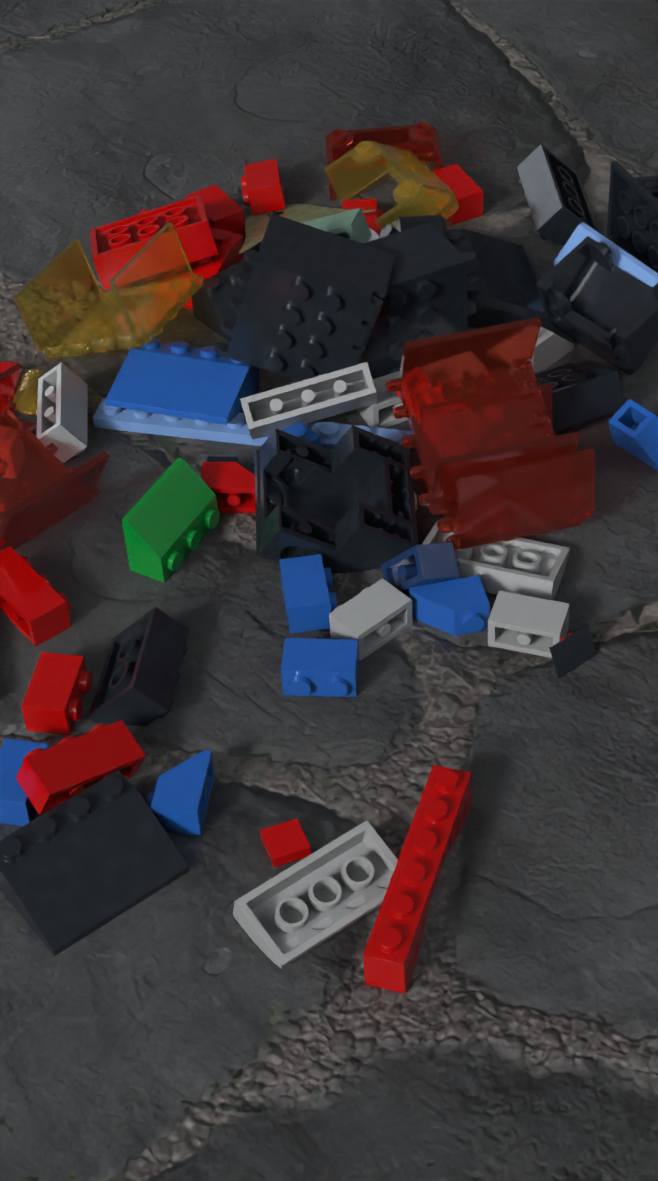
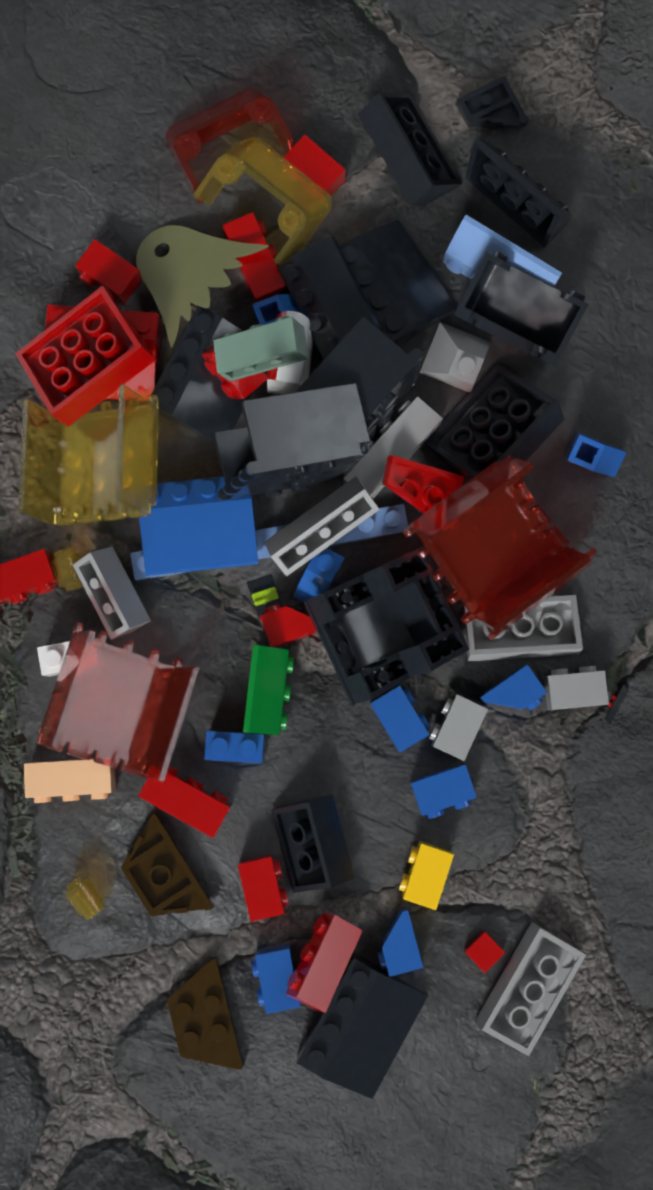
camera: 25 degrees left, 40 degrees up
(107, 564) = (234, 746): none -> blue brick
(256, 739) = (426, 875): none -> yellow brick
(263, 187) = (137, 220): red brick -> none
(403, 913) = (595, 987): red arch -> none
(421, 566) = (482, 675): dark blue slope -> none

